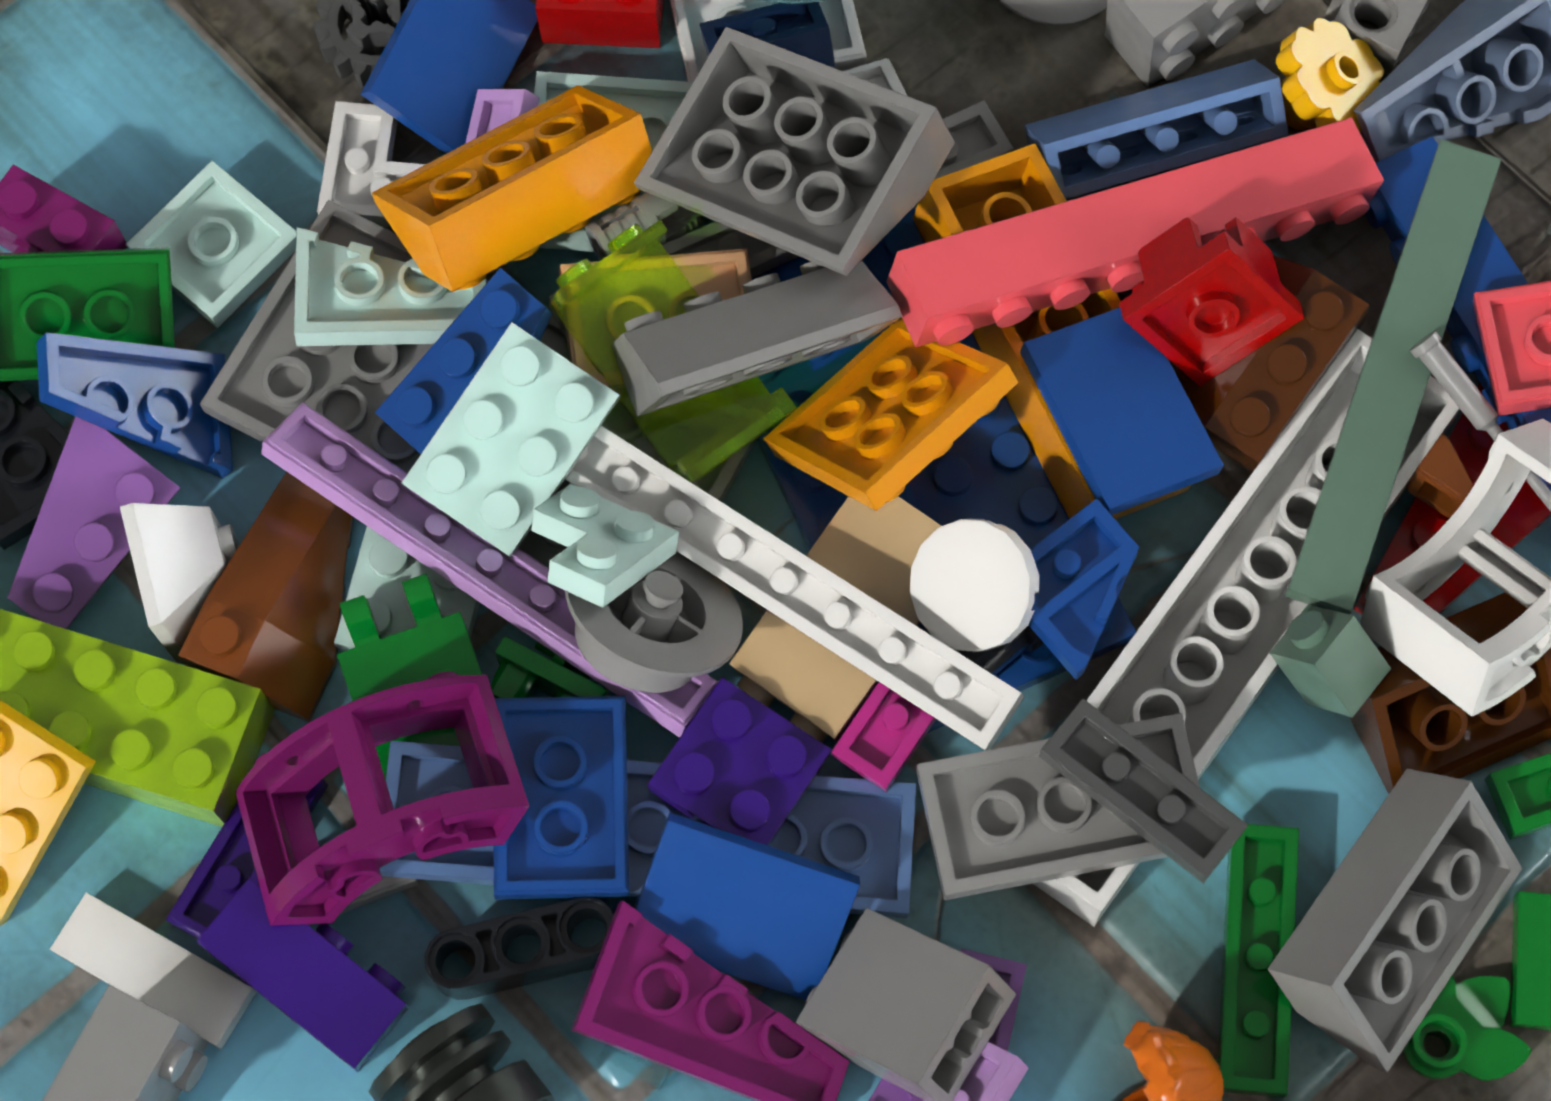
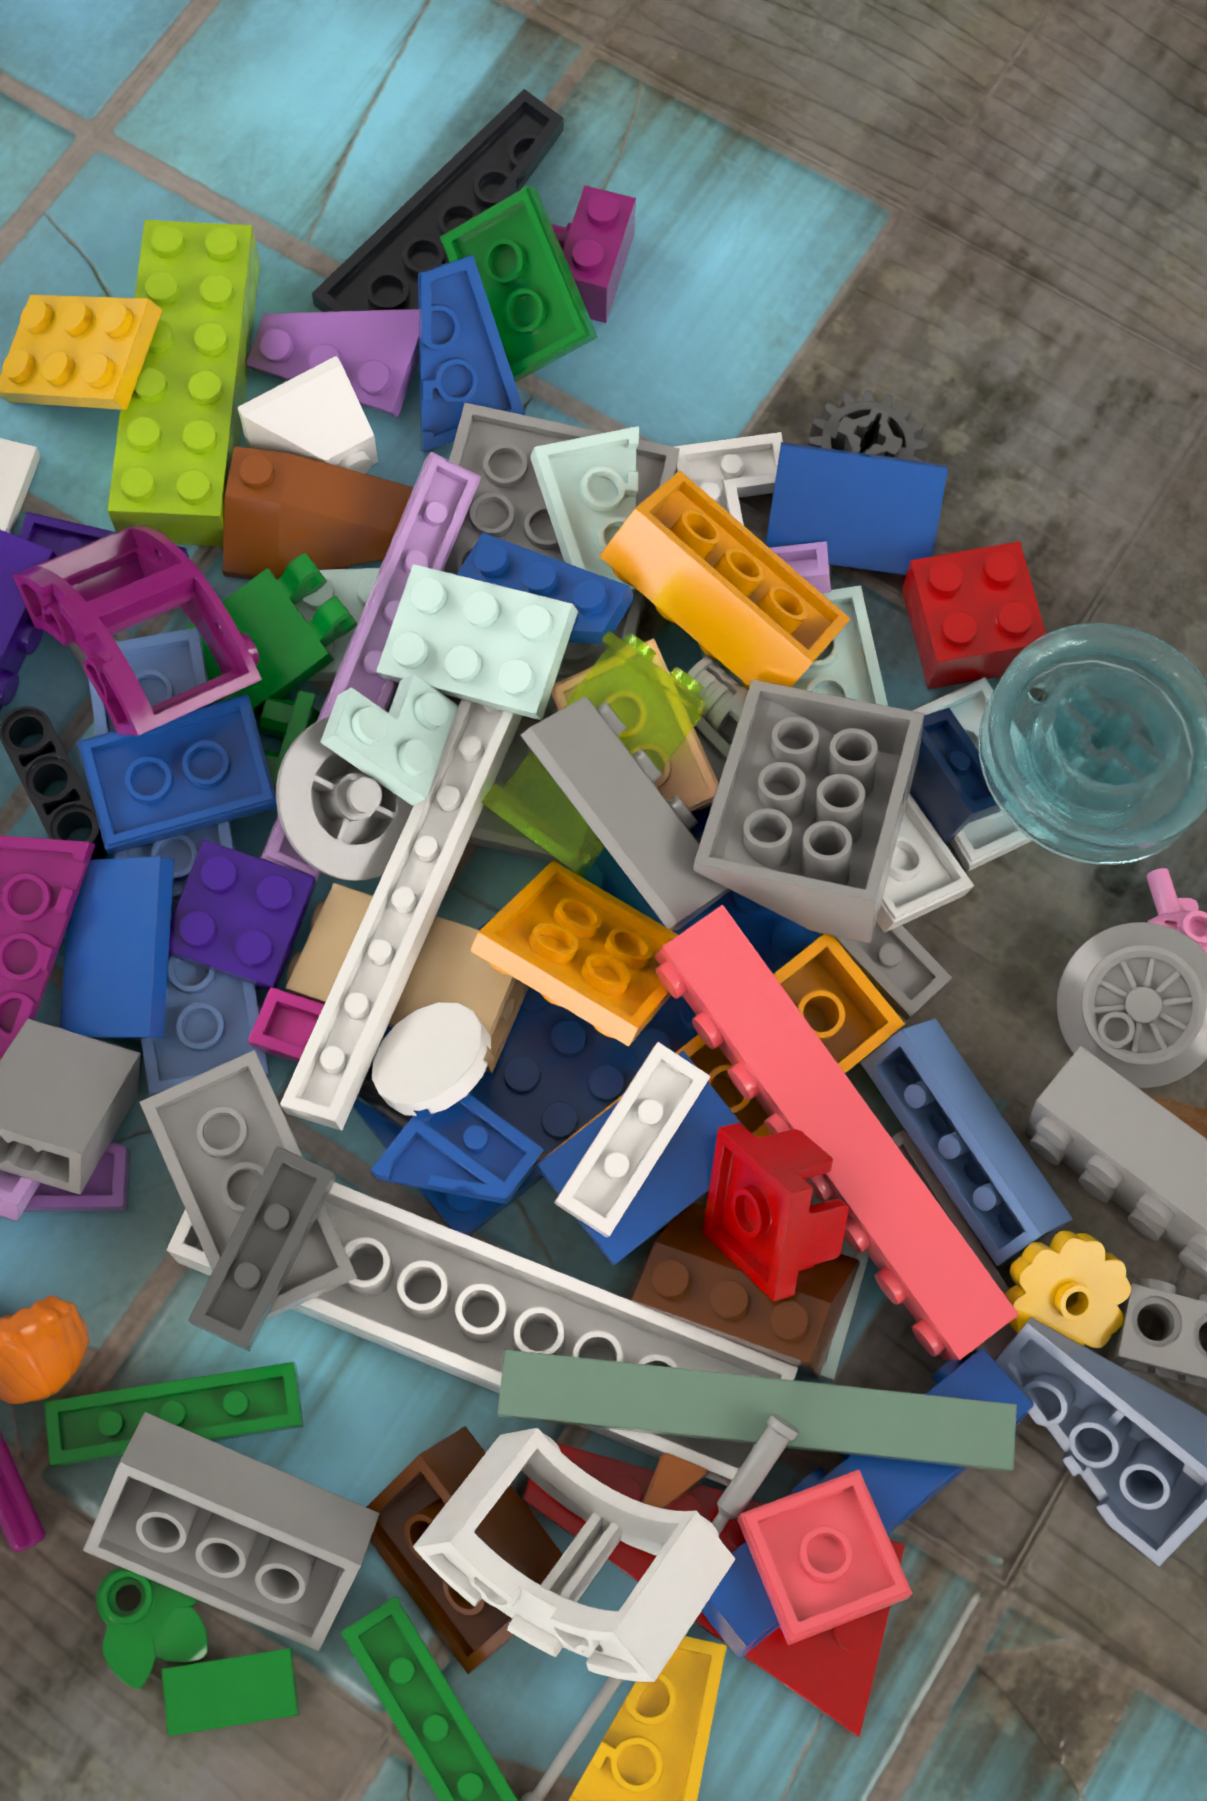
camera: 70 degrees right, 0 degrees up
(218, 242) = (623, 378): light aqua plate -> none
(1111, 407) = (632, 1139): none -> white plate
(1330, 660) = (449, 1407): sand green brick -> none

